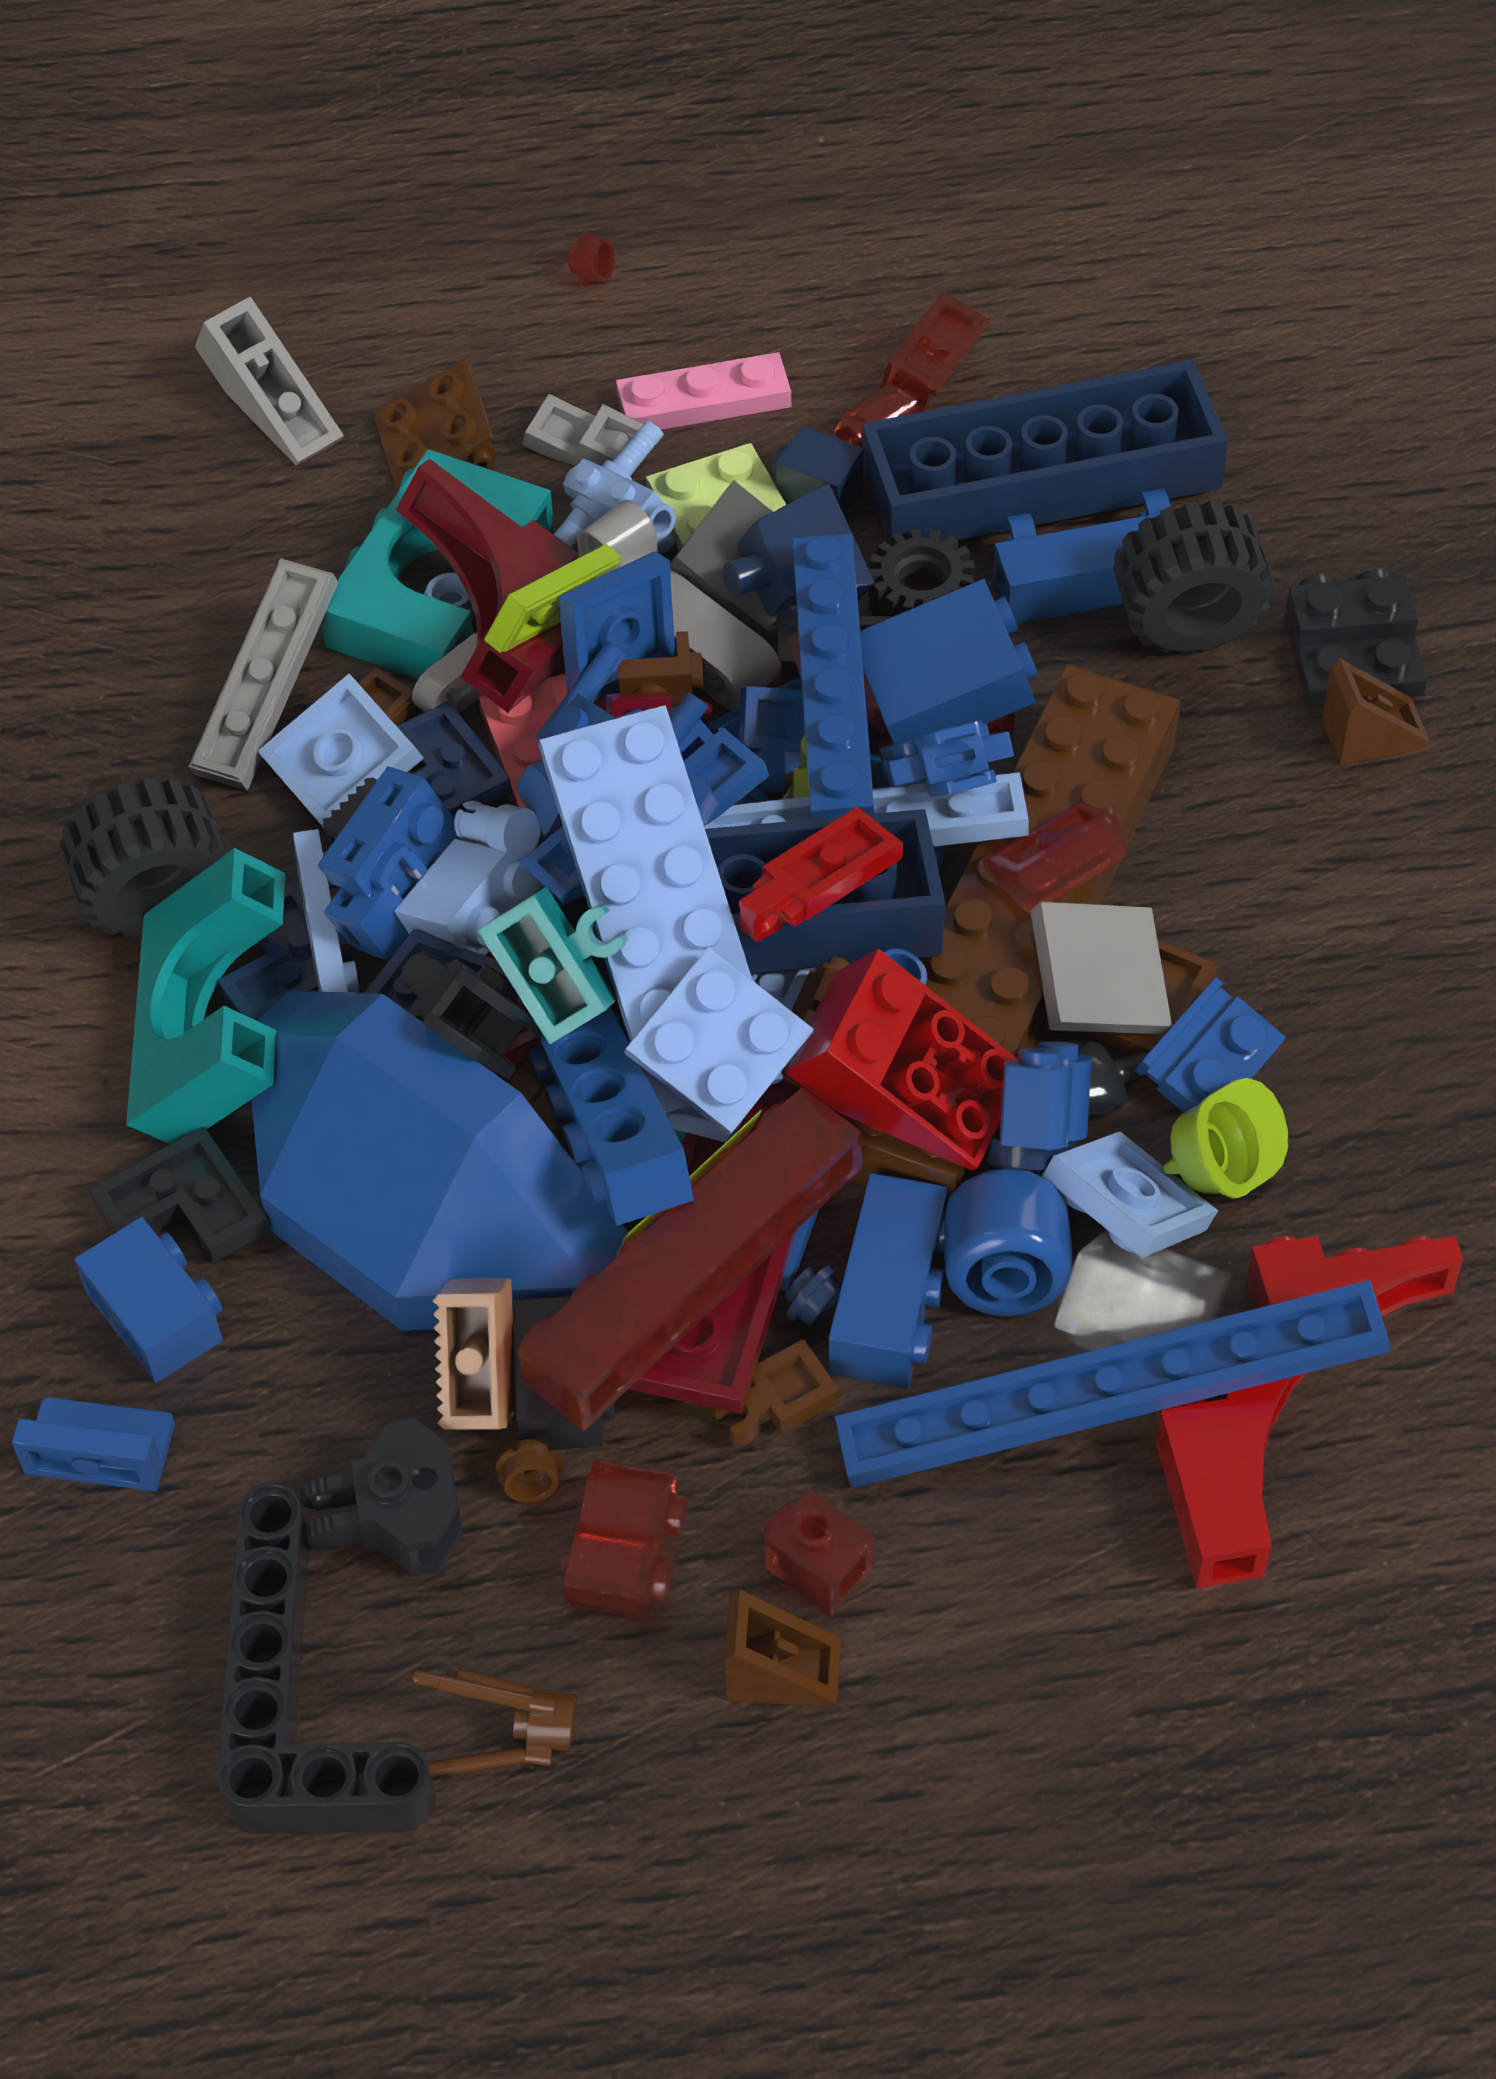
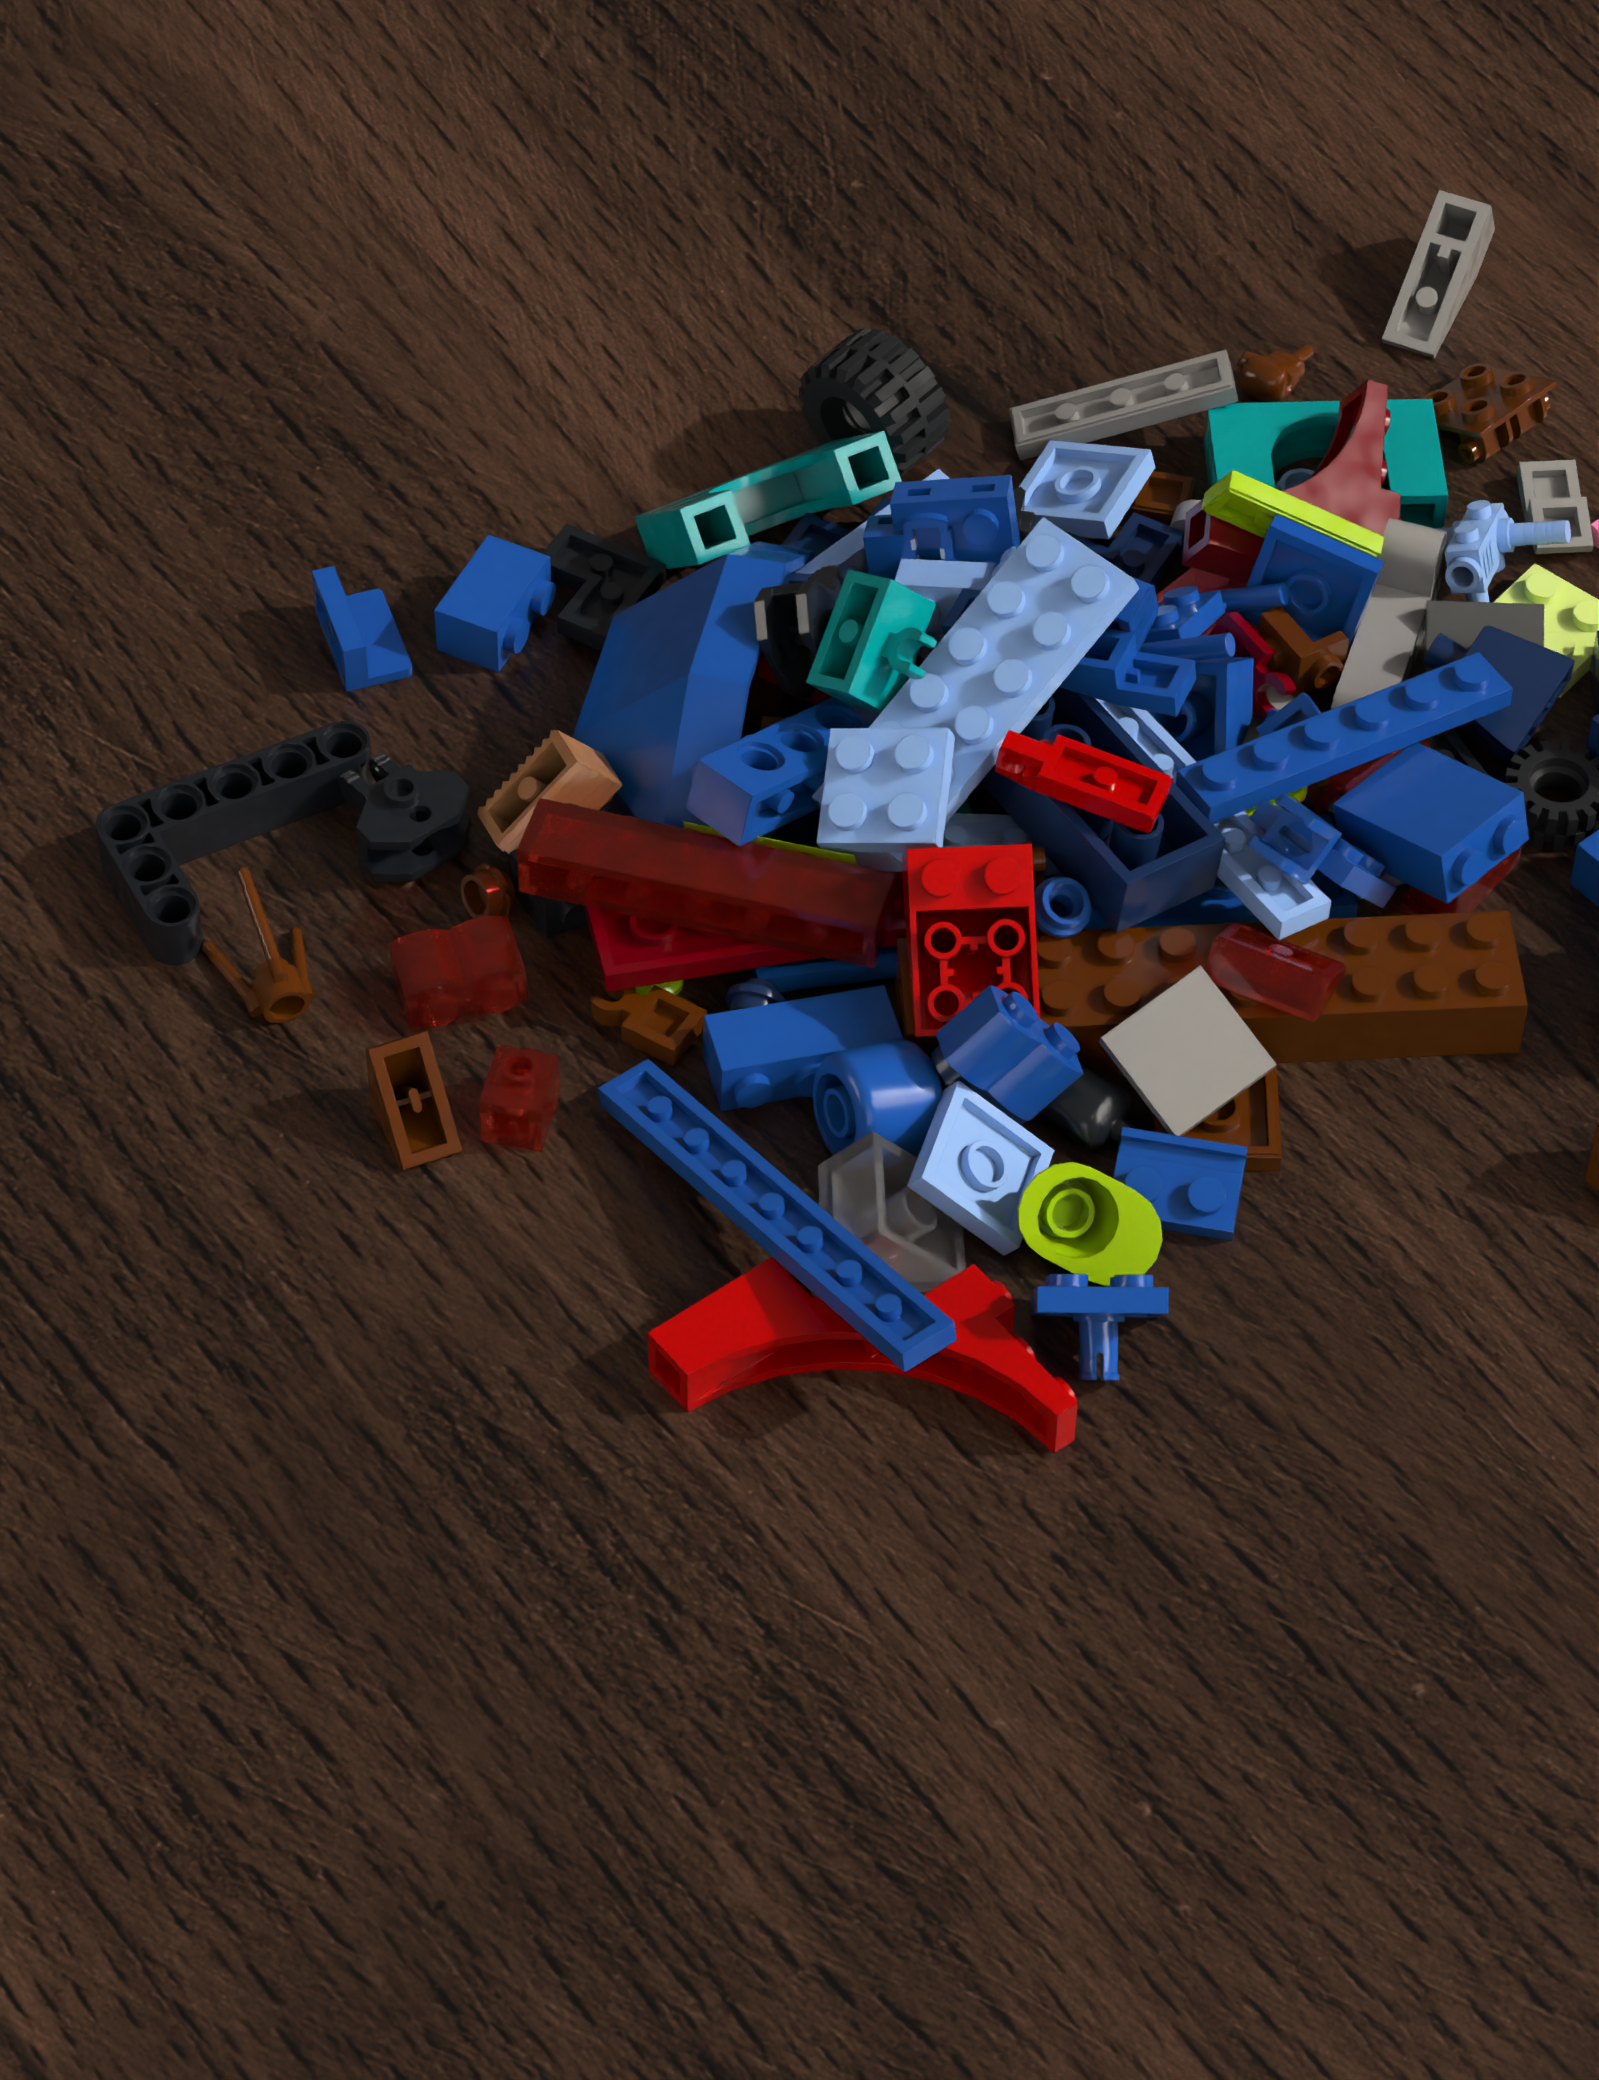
camera: 60 degrees right, 5 degrees down
(289, 544) = (1272, 375): none -> reddish brown piece
(1348, 1171) = (1098, 1313): none -> blue plate

